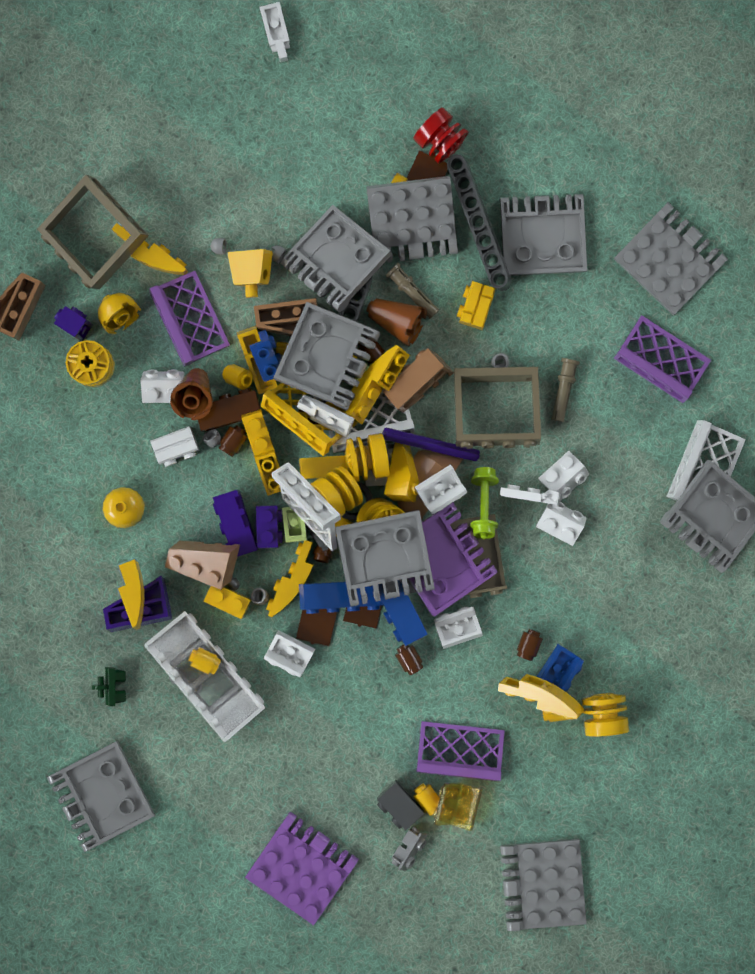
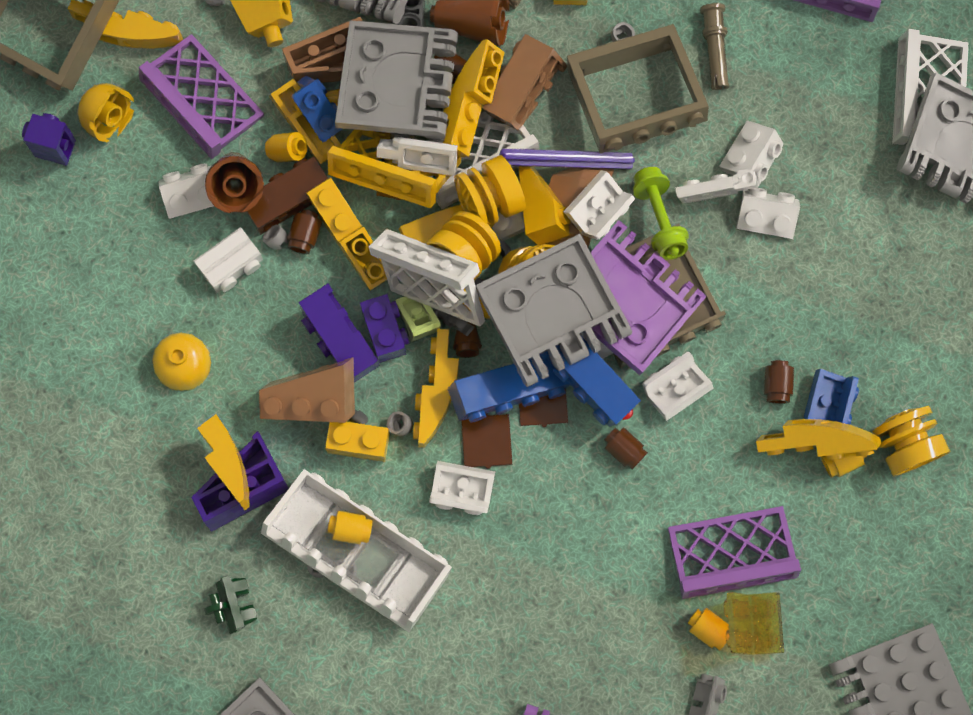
camera: 20 degrees left, 10 degrees down
(98, 372) = (88, 200): yellow wheel -> none
(399, 805) = (675, 648): dark grey brick -> none

